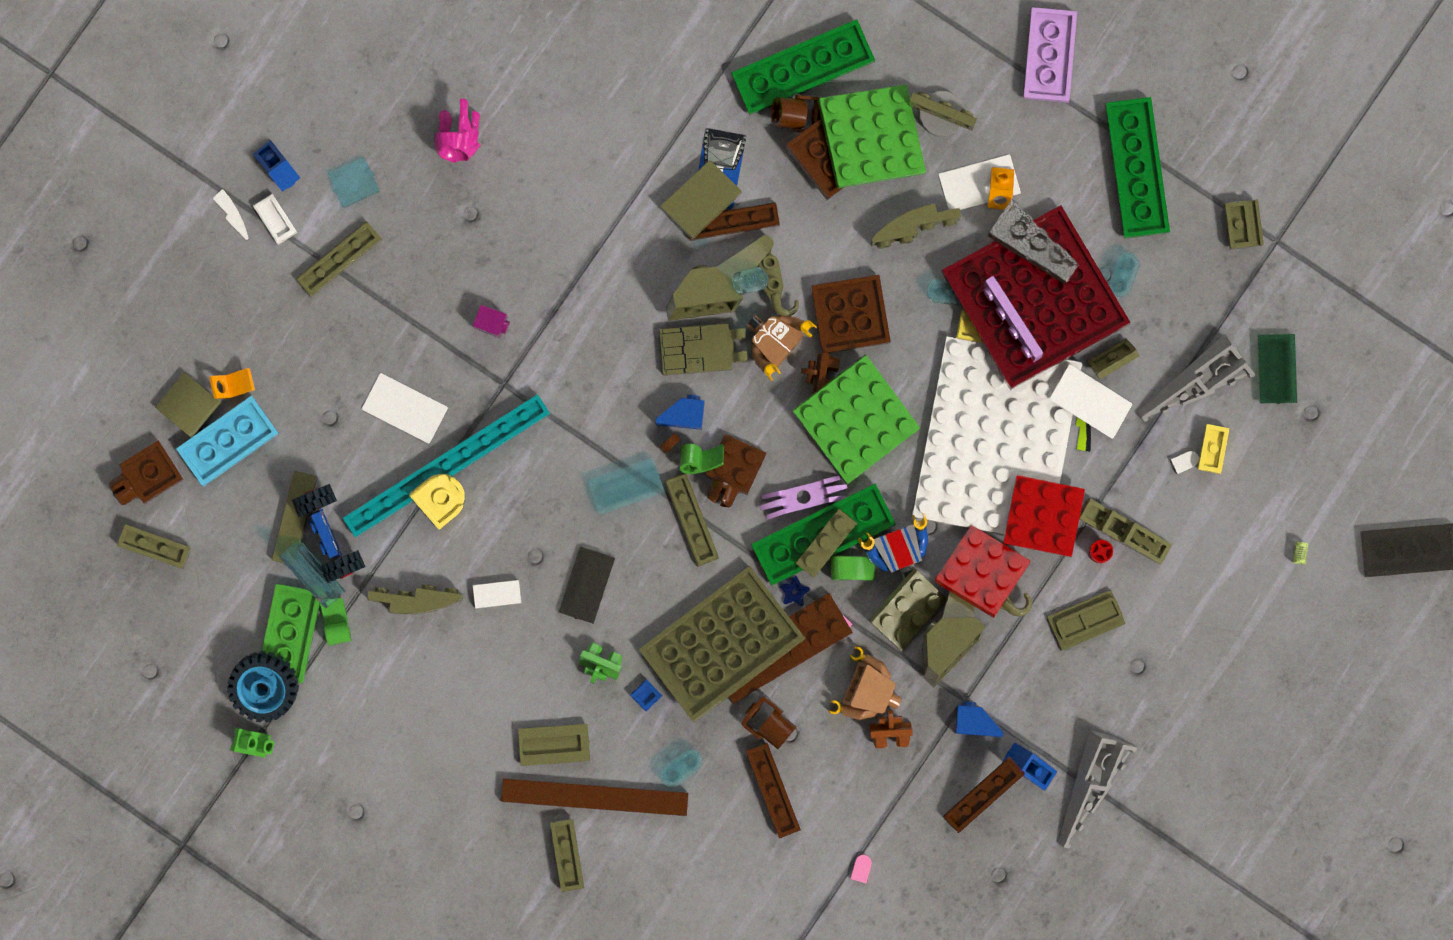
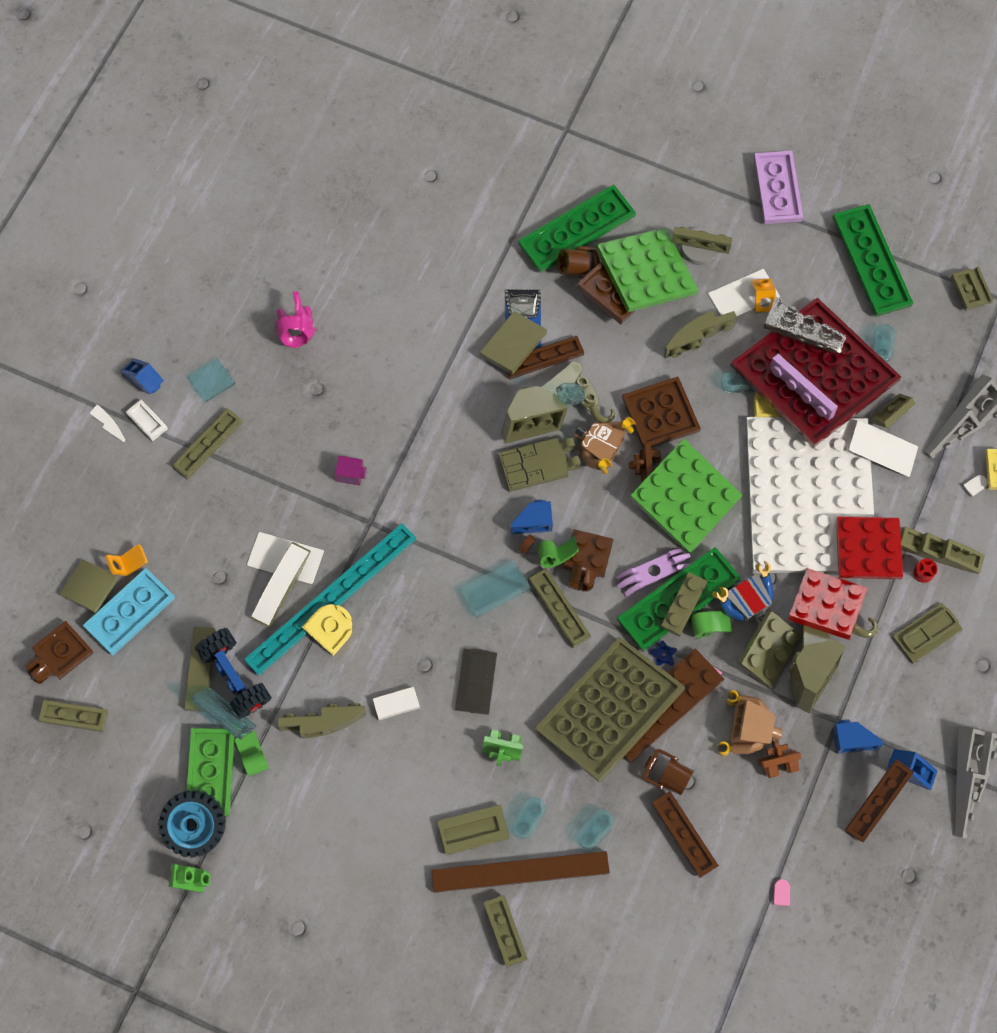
camera: 15 degrees left, 15 degrees down
(394, 440) = (280, 584): none -> white slope
(613, 742) = (528, 818): none -> clear light blue plate
(646, 695) = (549, 769): blue tile -> none
(1084, 438) = (884, 479): lime sticker -> none

